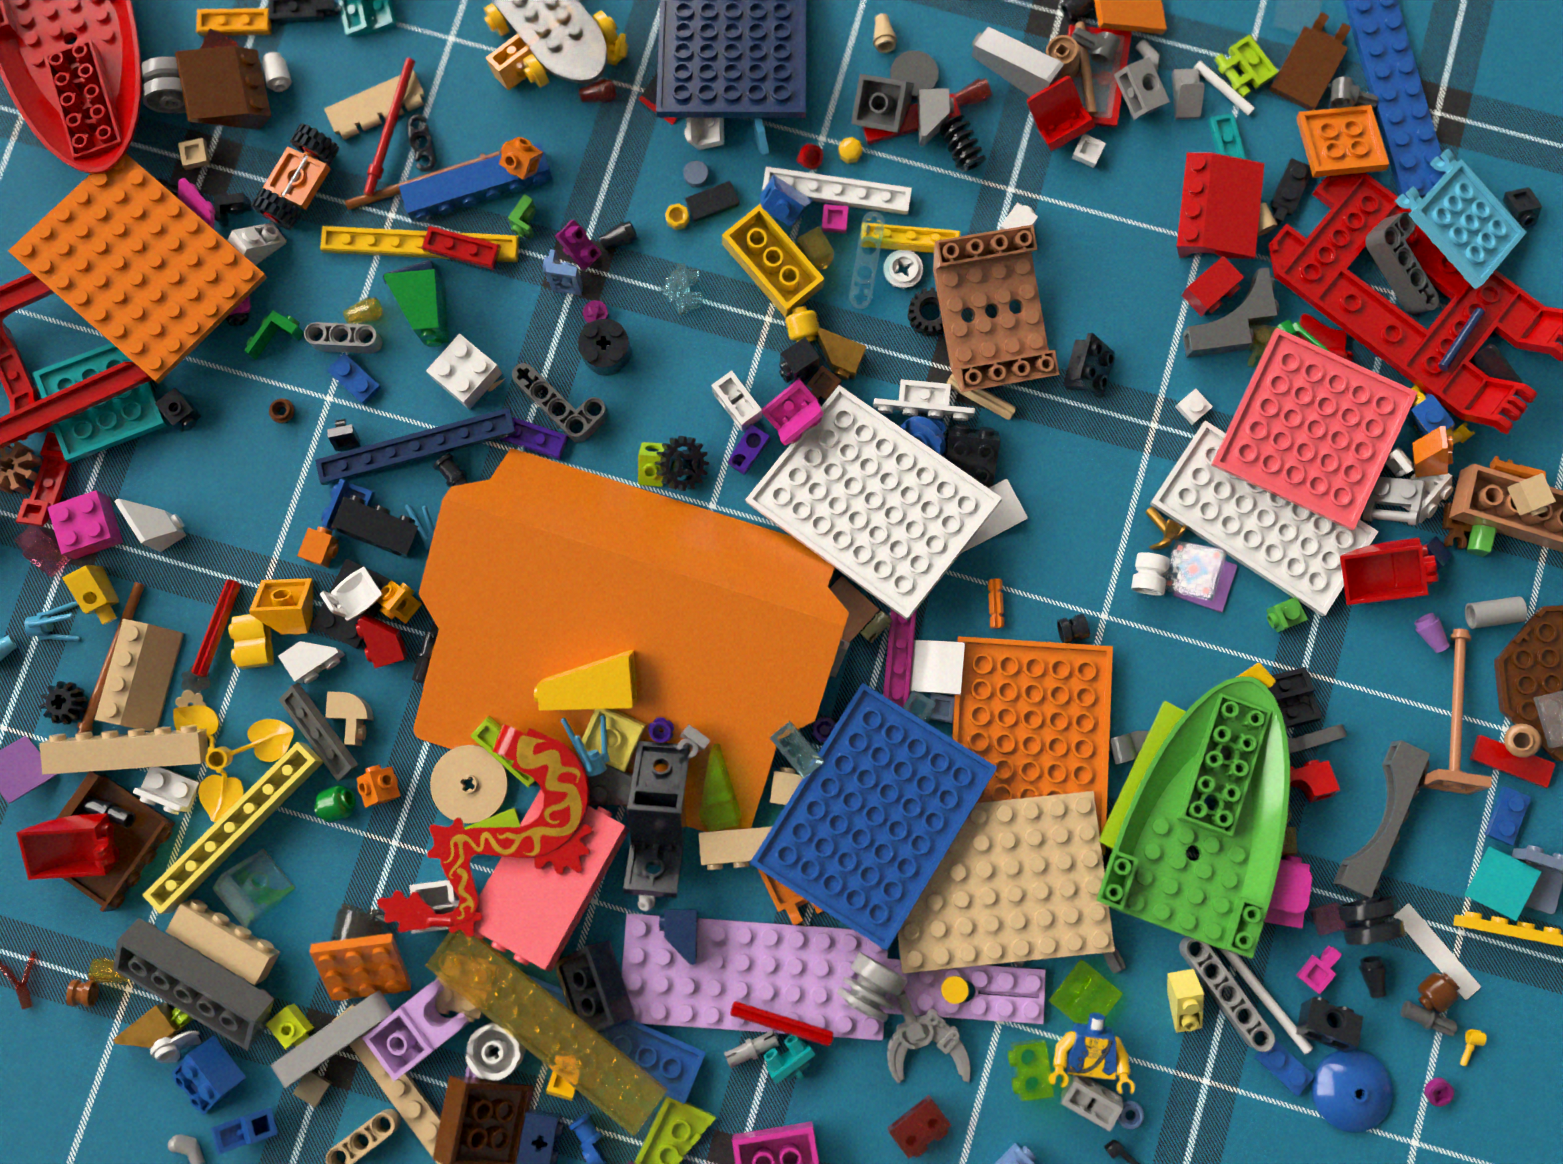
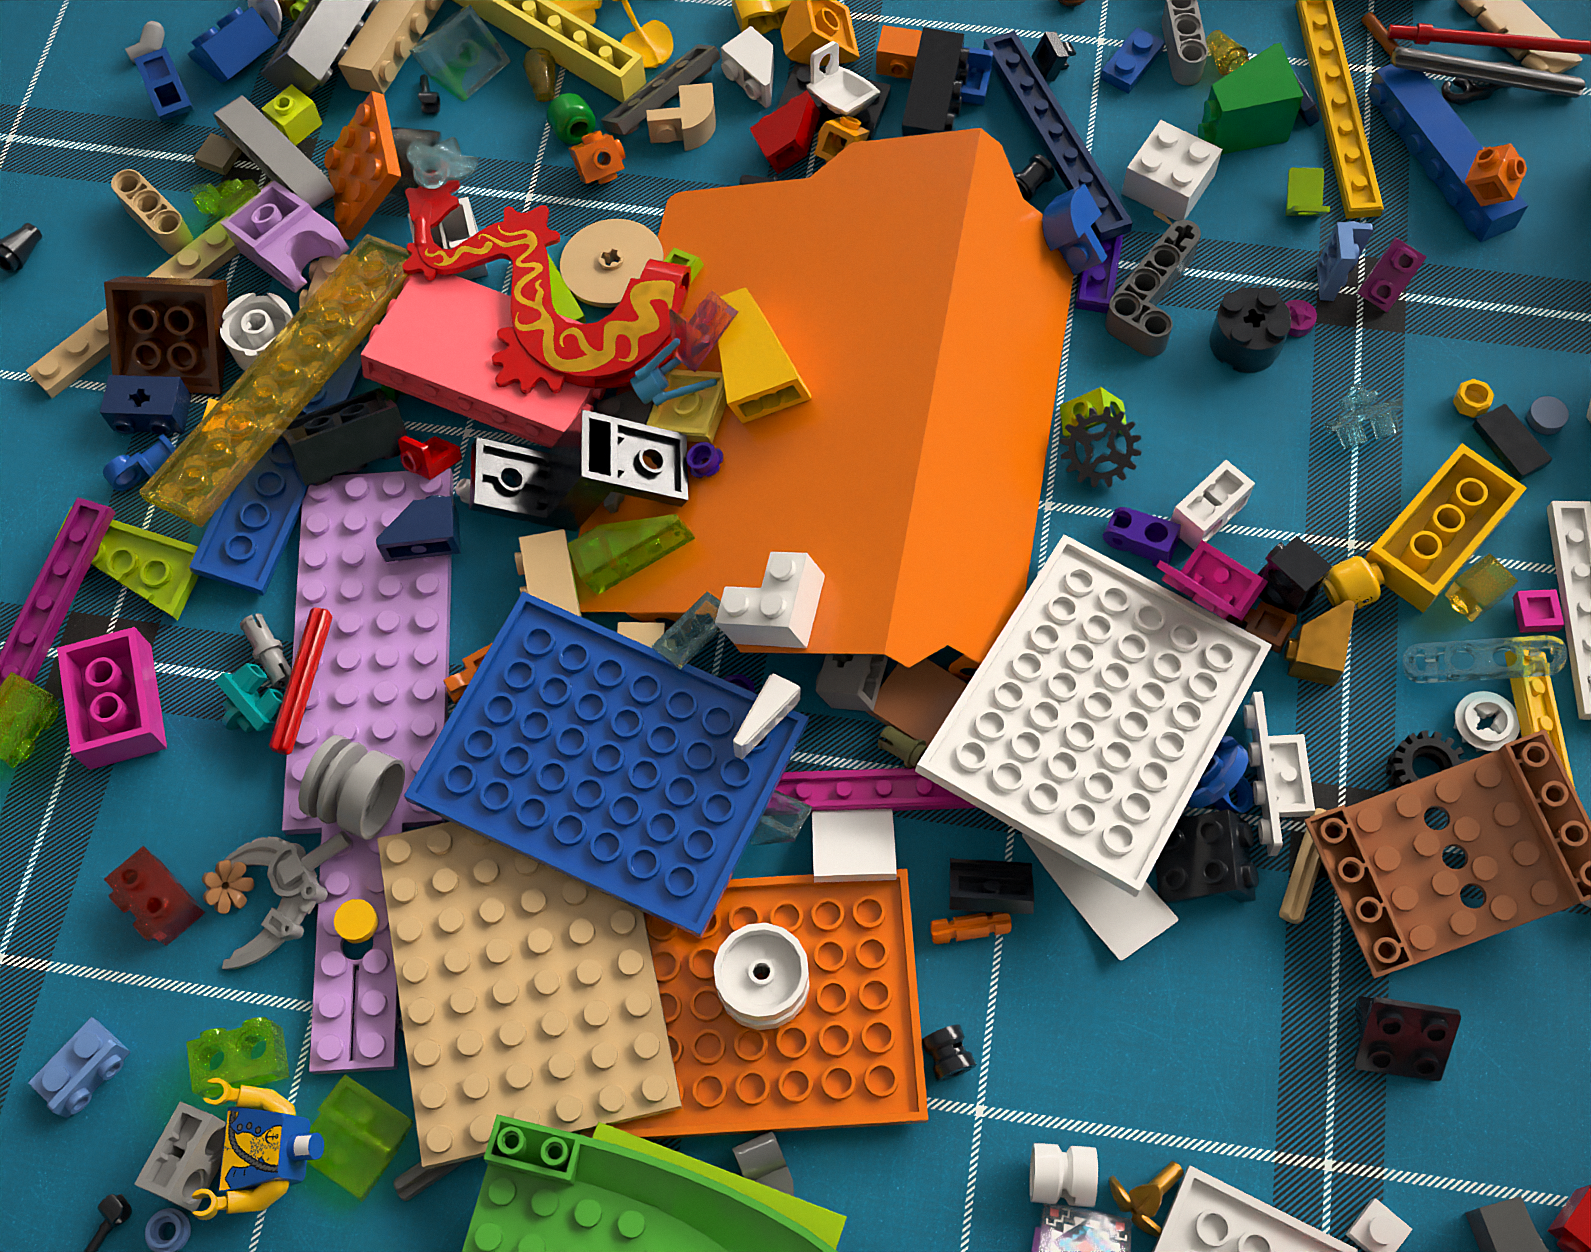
camera: 85 degrees right, 15 degrees down
(285, 824) = (540, 72): none -> clear yellow cone
(292, 915) = (429, 100): none -> black hand
(366, 1077) = (224, 198): none -> clear neon green bracket
(378, 902) = (439, 163): none -> clear light blue plate
(421, 138) = (1487, 72): none -> dark grey axle
(461, 247) = (1345, 143): red tile -> none
(499, 285) = (1305, 192): none -> lime bracket
(507, 451) = (1068, 227): none -> blue brick
(520, 215) = (1413, 205): bright green bracket -> none
(564, 719) = (702, 330): none -> clear pink slope
(617, 927) = (428, 458): none -> red bracket
(619, 235) = (1422, 329): black cone -> none
(694, 739) = (694, 498): light grey tile -> none
(784, 201) = (1542, 522): blue torso -> none
(799, 687) = (780, 610): none -> white brick
(860, 706) = (771, 706): none -> white slope
(917, 1077) = (226, 886): none -> medium nougat plant
(943, 709) = (791, 858): sand blue tile -> none
(975, 586) = (991, 886): none -> black plate
(1011, 741) = (762, 950): none -> white wheel

